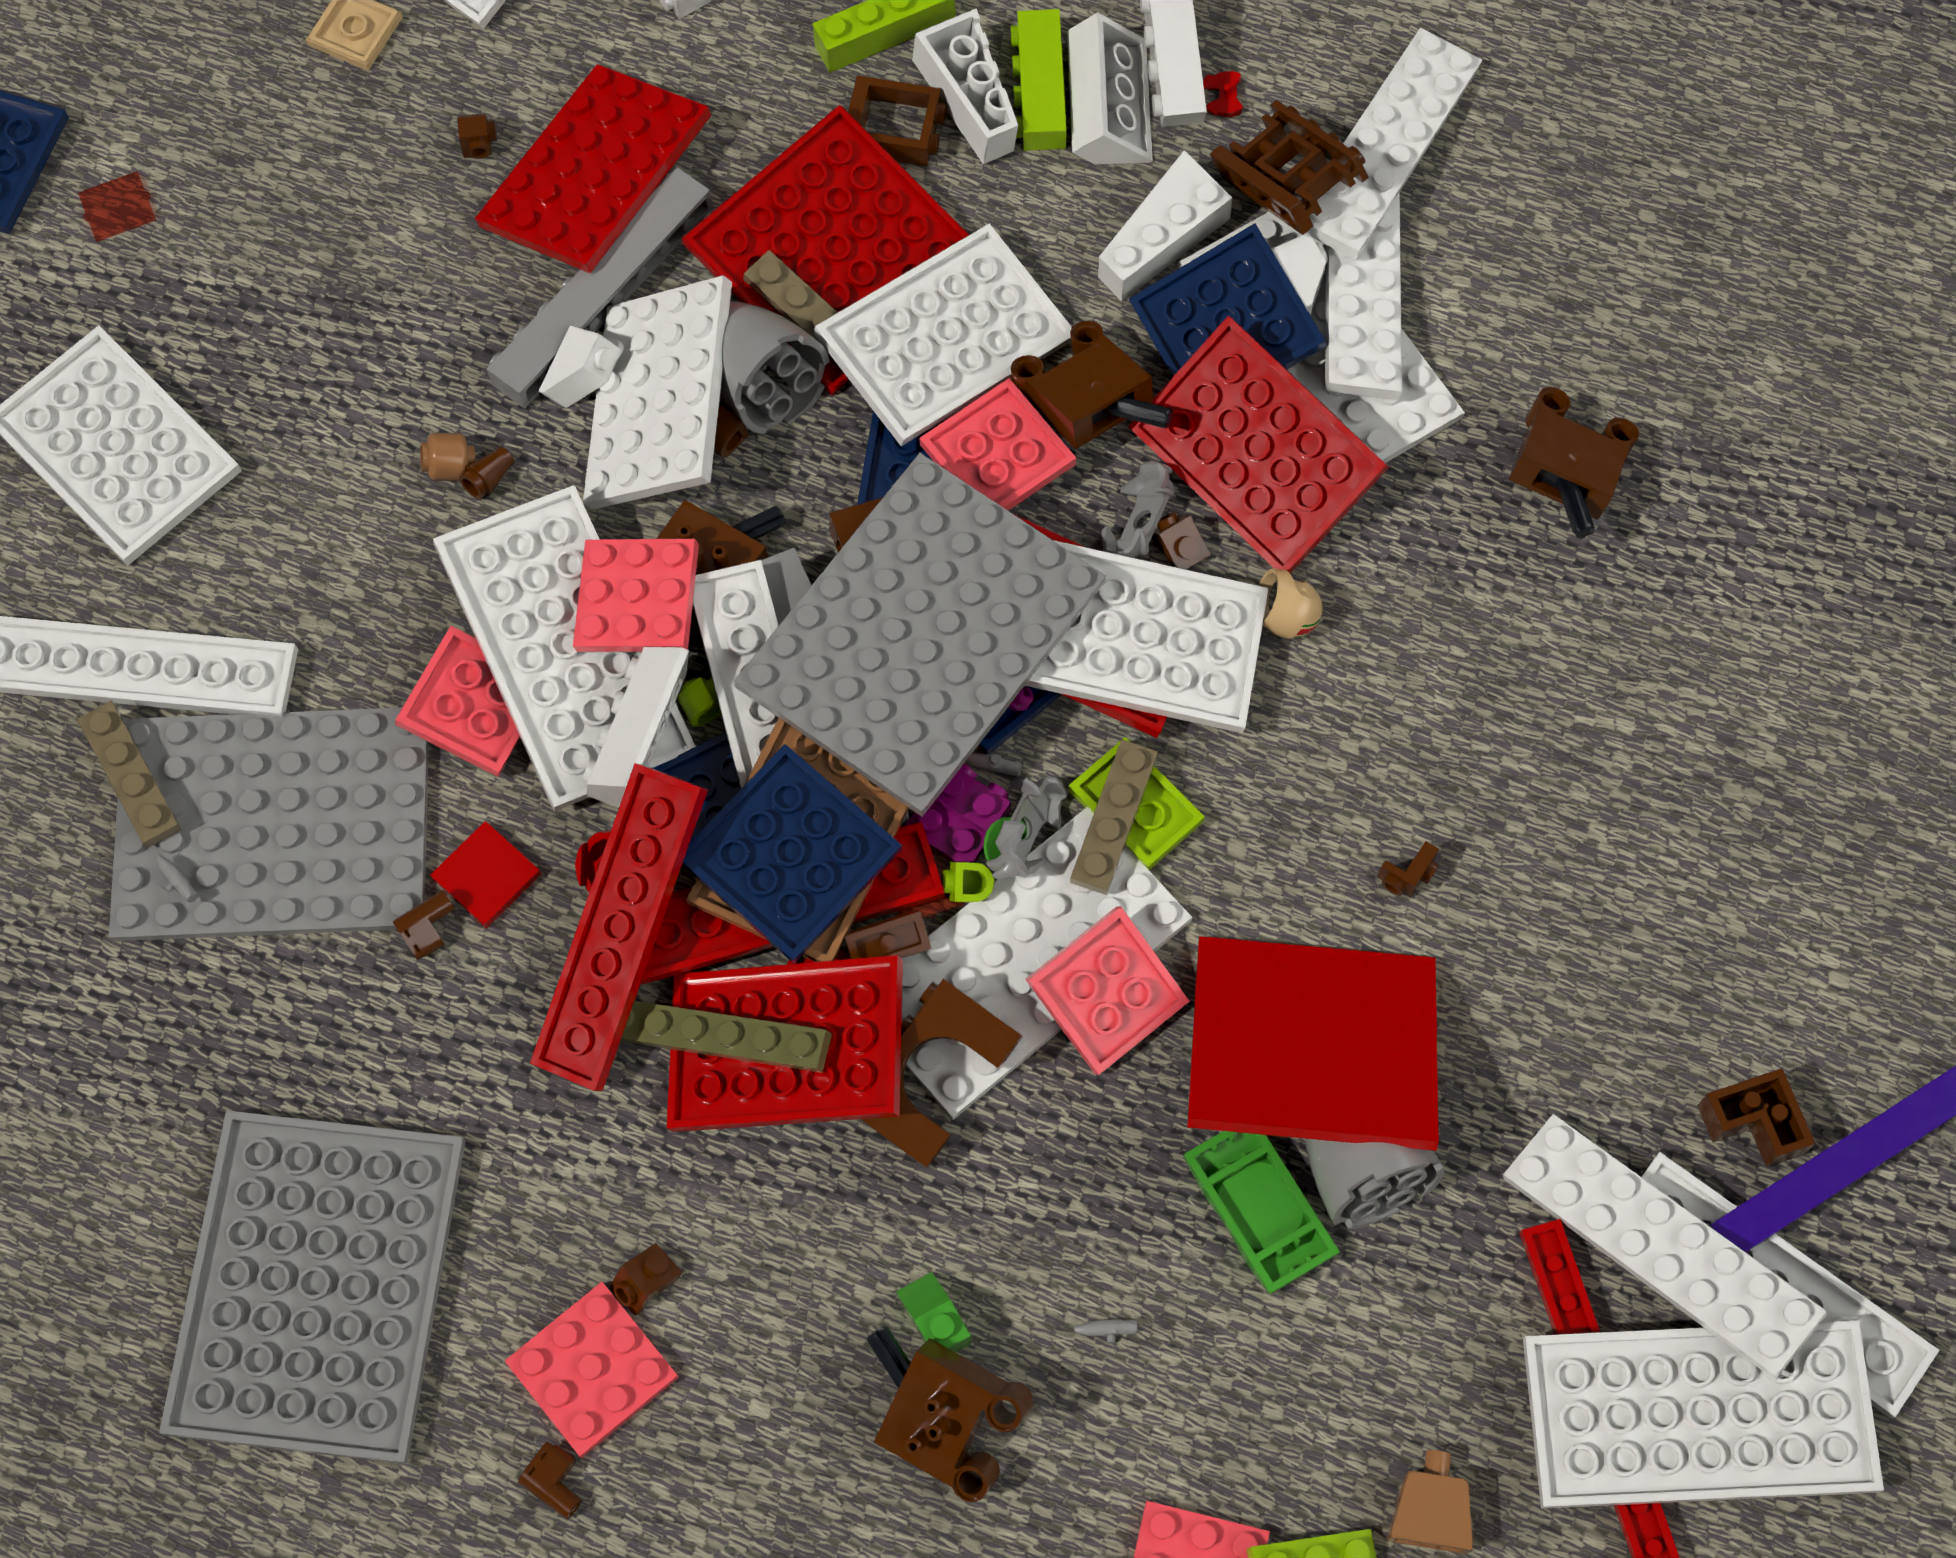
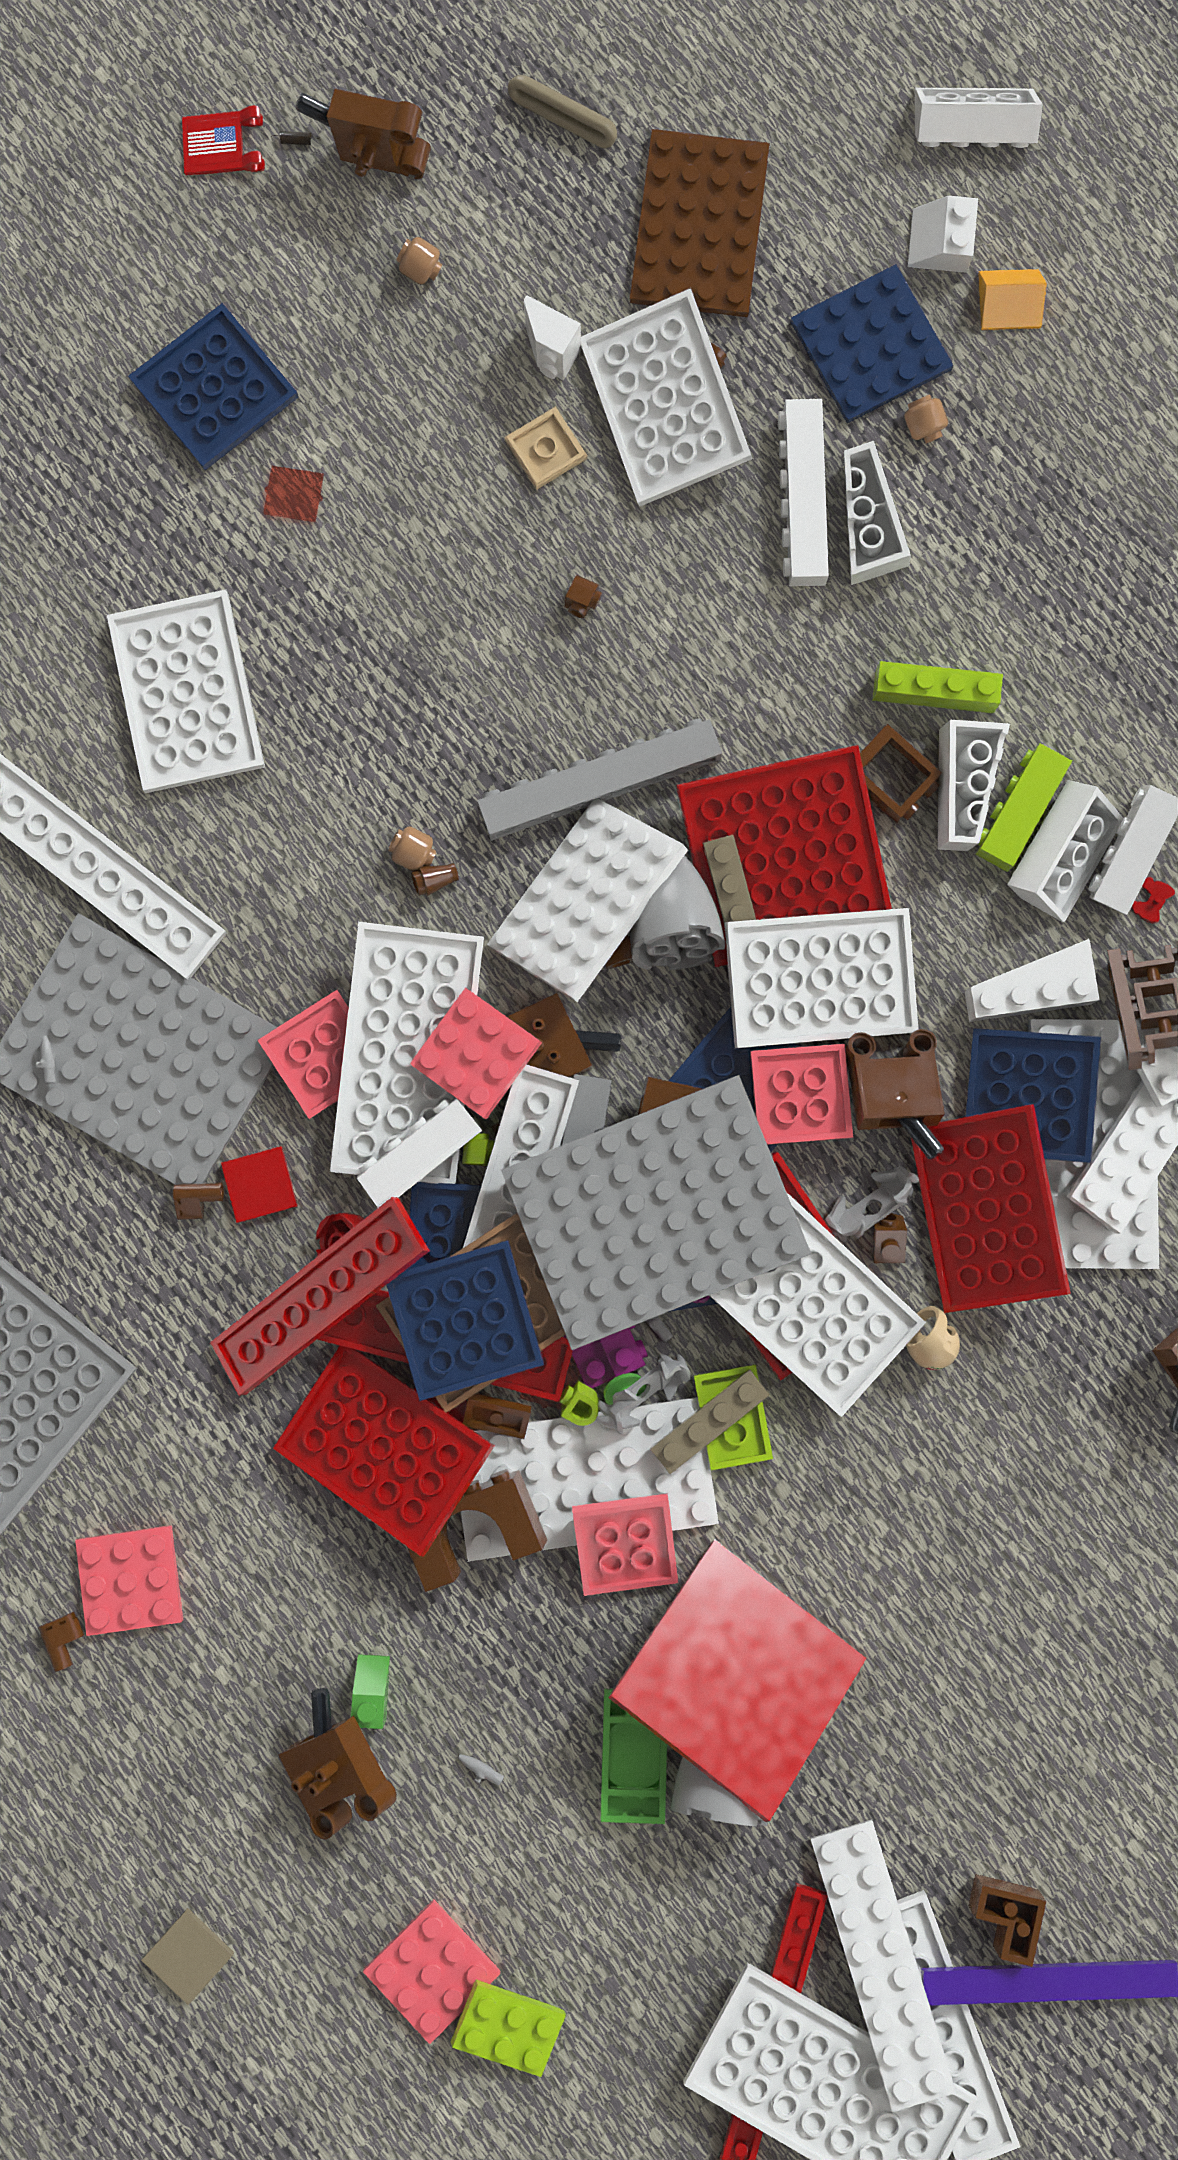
camera: 30 degrees right, 15 degrees up
(129, 774) = (57, 961): dark tan plate -> none
(579, 366) = (545, 838): white slope -> none
(593, 168) = (650, 679): red plate -> none
(644, 1278) = (198, 1542): reddish brown bracket -> none
(727, 1036) = (349, 1418): olive plate -> none
(1304, 266) = (1114, 1091): white slope -> none
(1421, 869) = (897, 1591): reddish brown bracket -> none
(1433, 1508) = (614, 2030): medium nougat torso -> none

